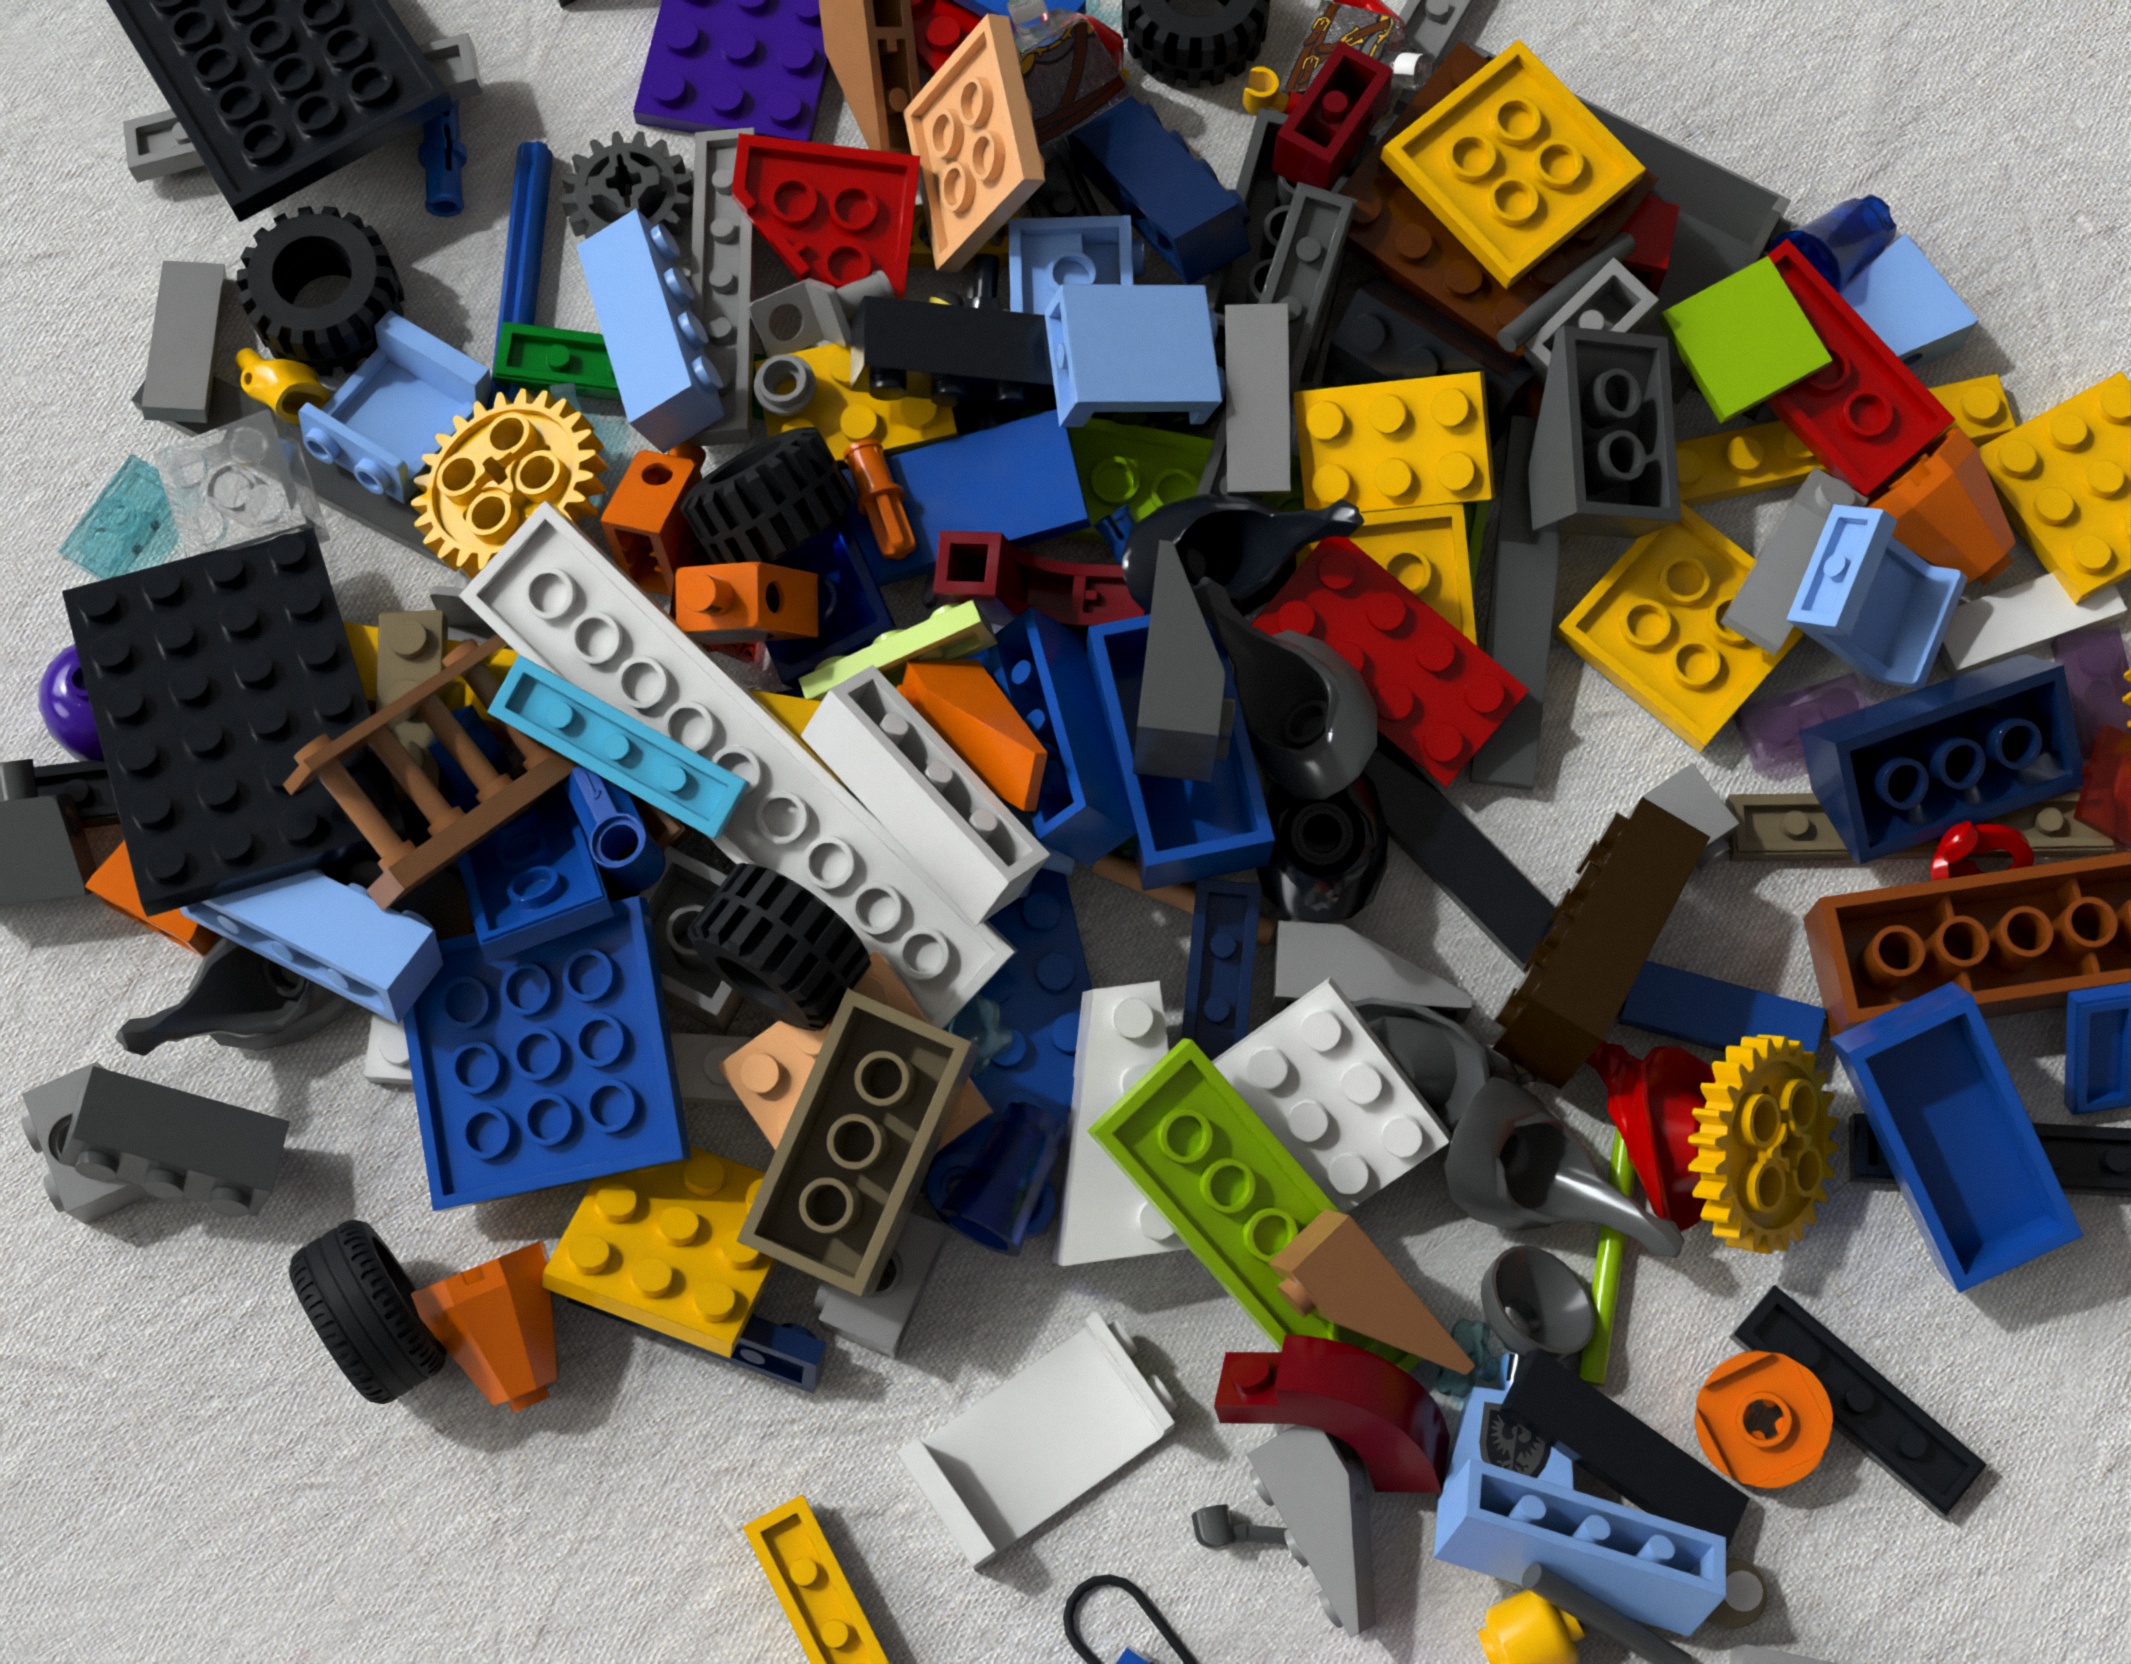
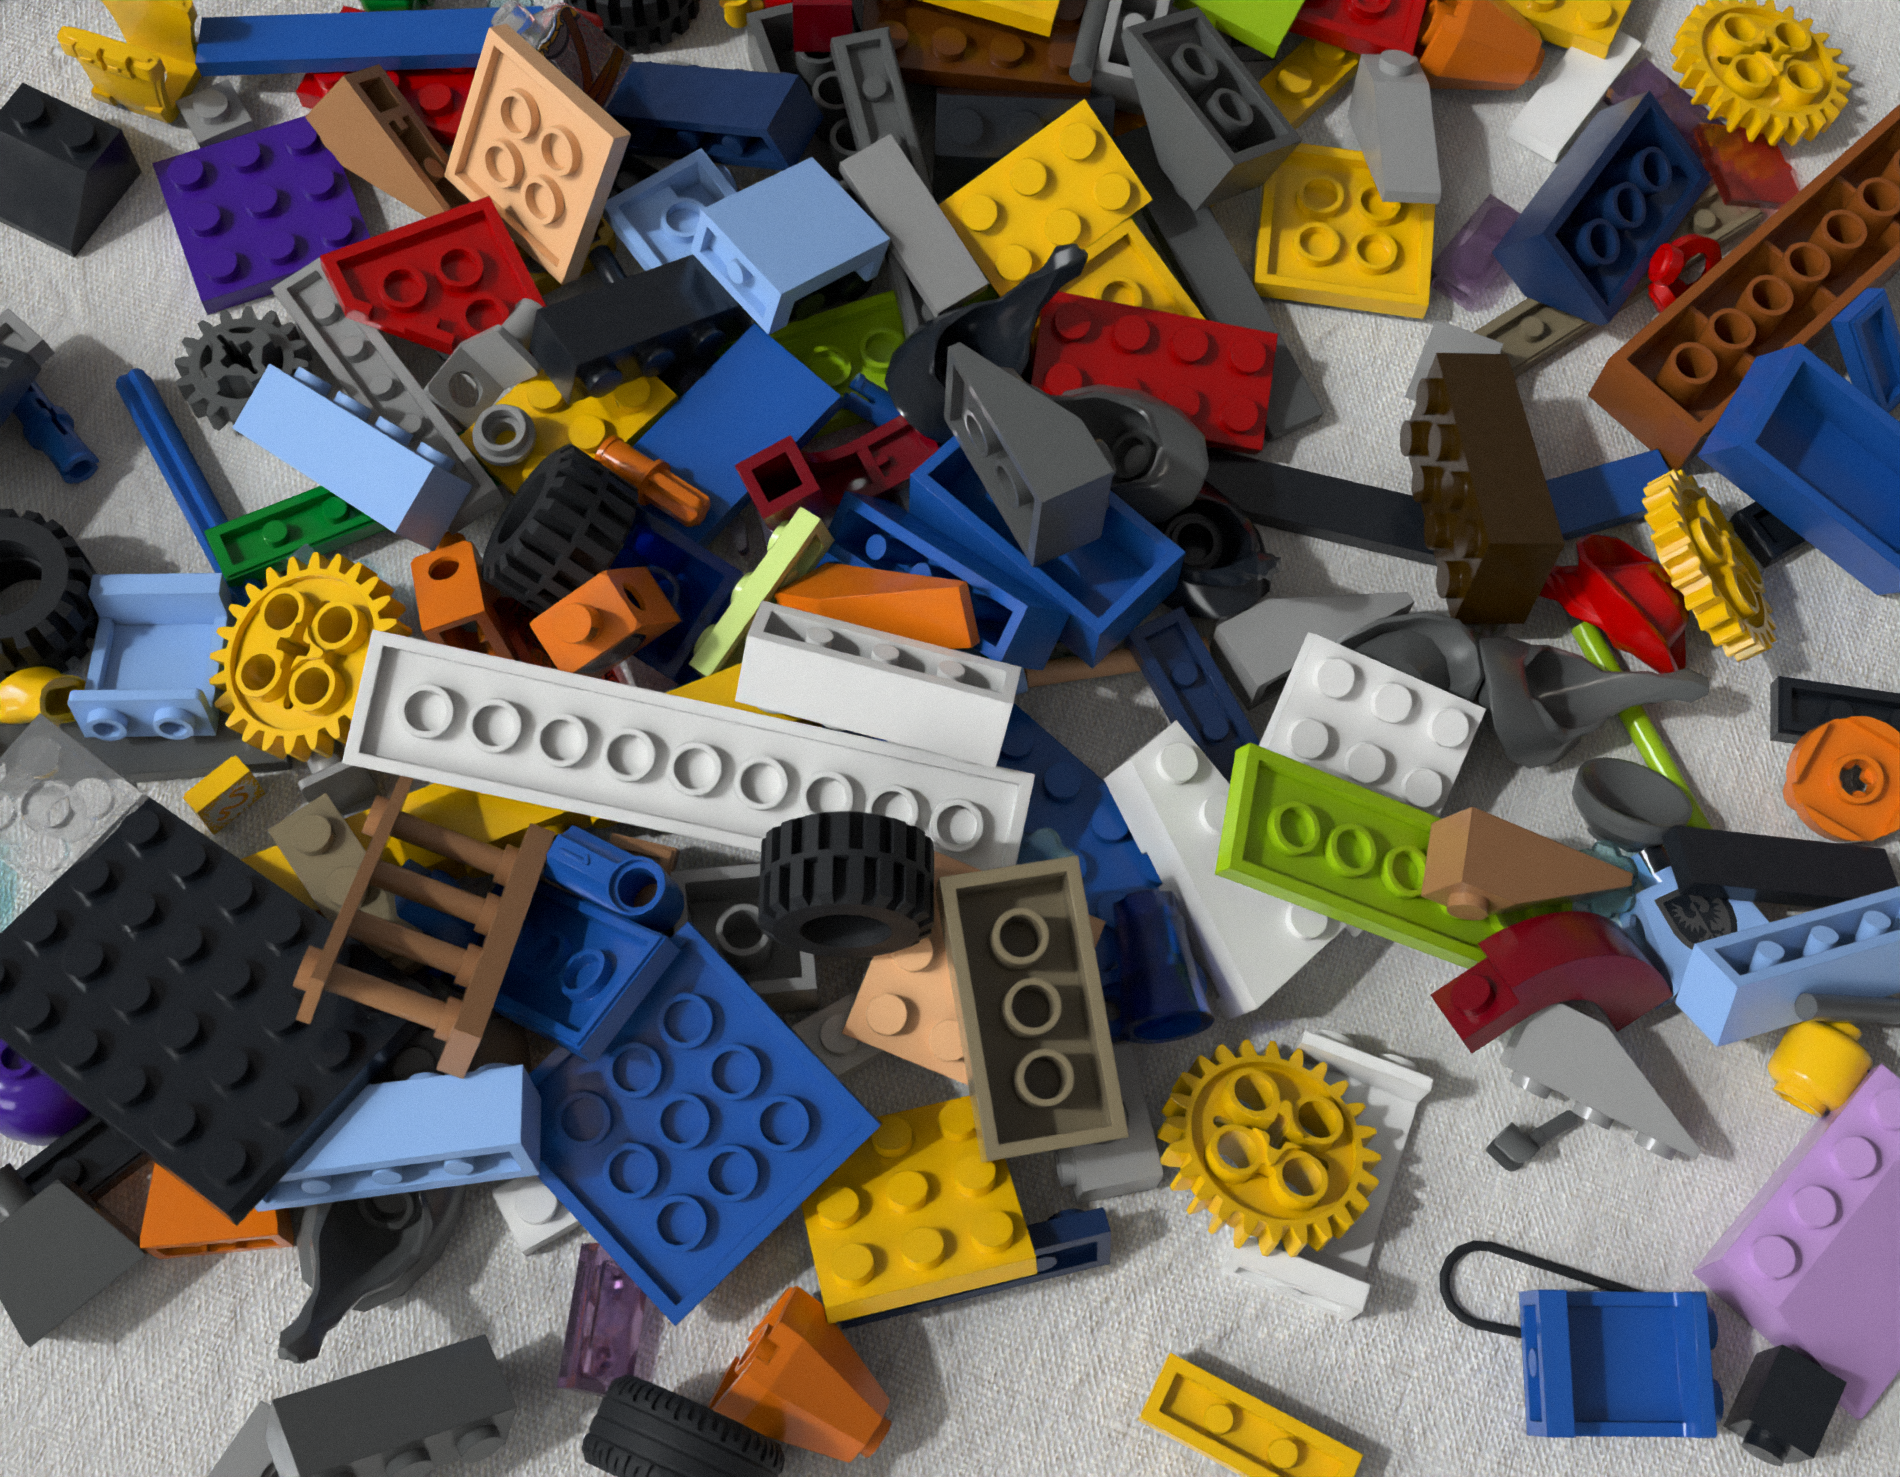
camera: 40 degrees left, 5 degrees down
(378, 558) = (224, 794): none -> yellow tile
(382, 1174) = (601, 1324): none -> clear purple plate
(618, 747) = (579, 805): medium azure plate -> none
(949, 1415) = (1268, 1148): none -> yellow gear
(1875, 598) = (1477, 126): light blue panel -> none

